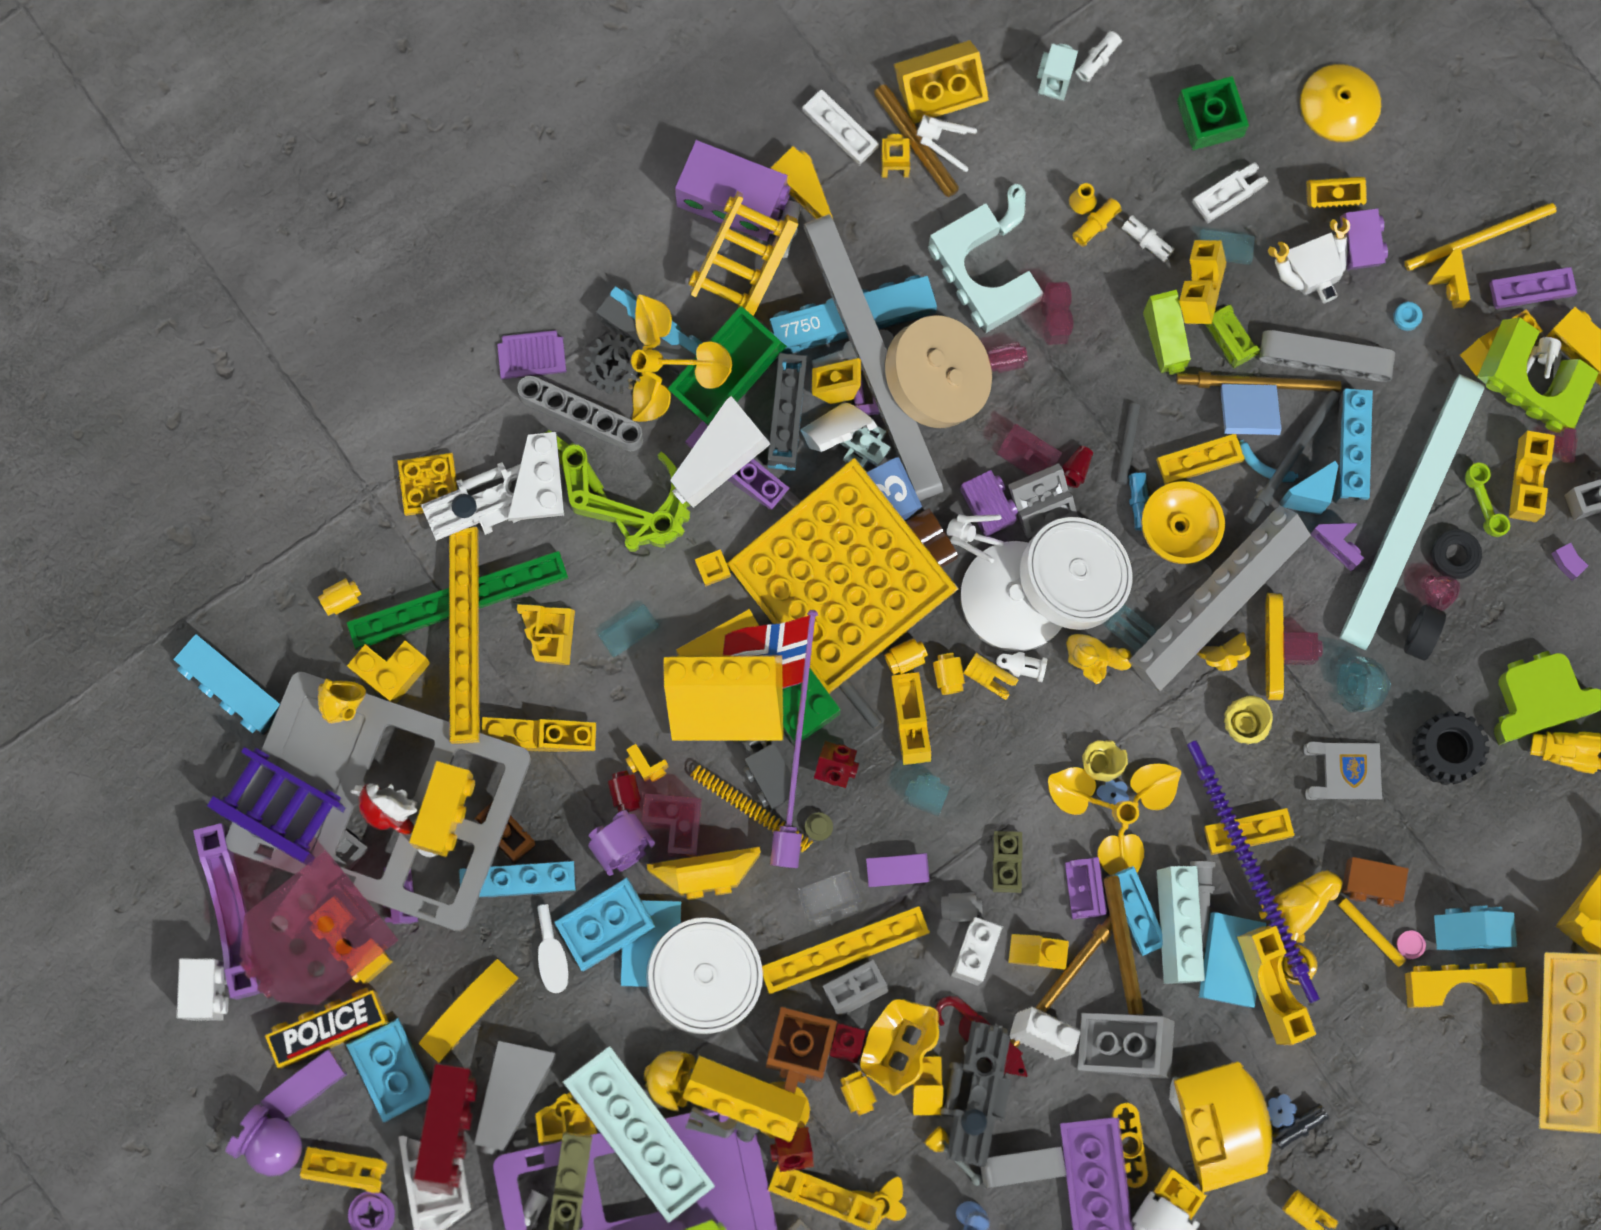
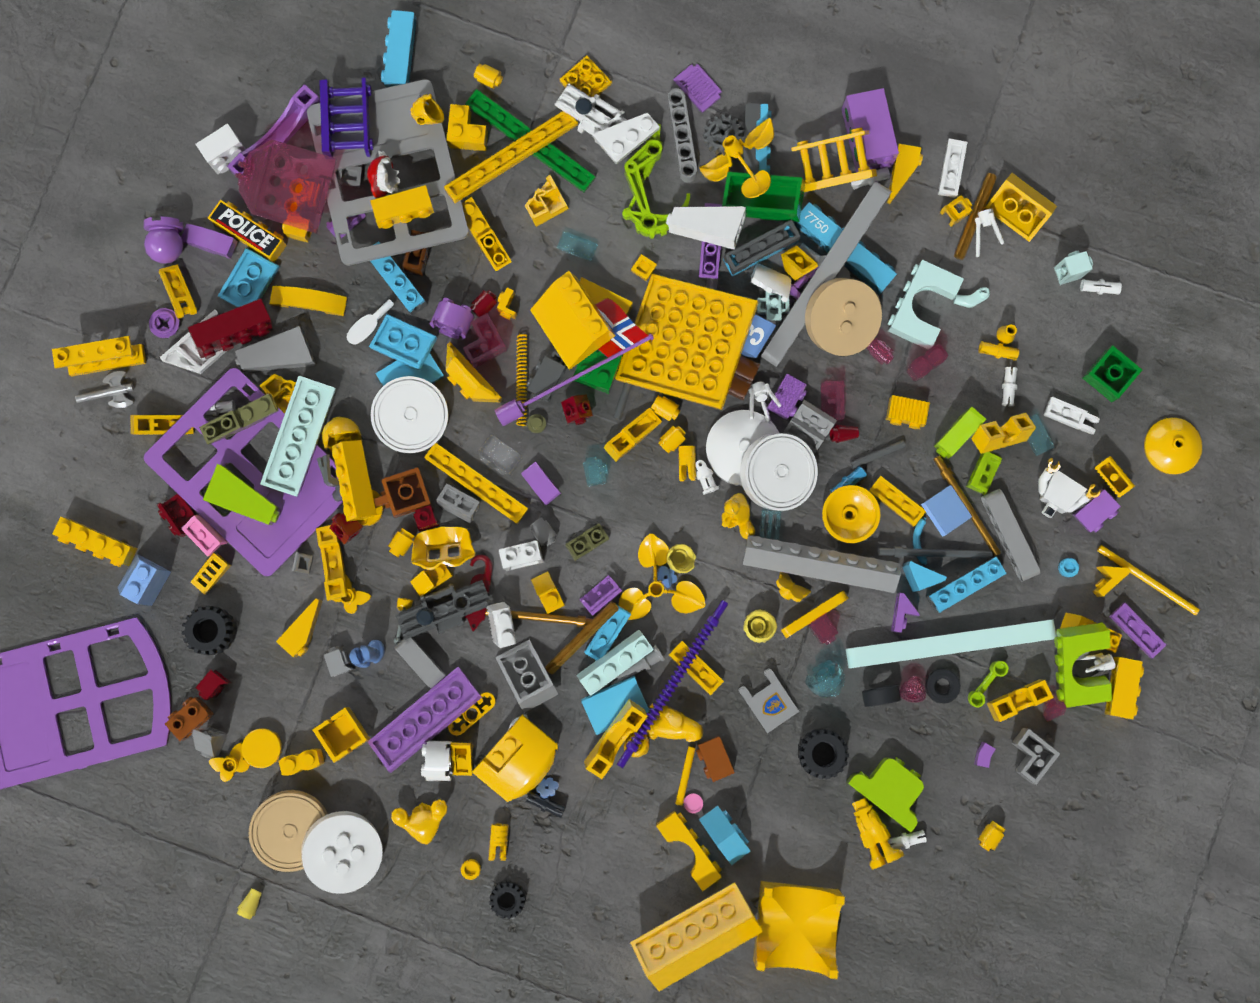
camera: 60 degrees right, 5 degrees up
(1100, 375) = (907, 411): none -> yellow brick

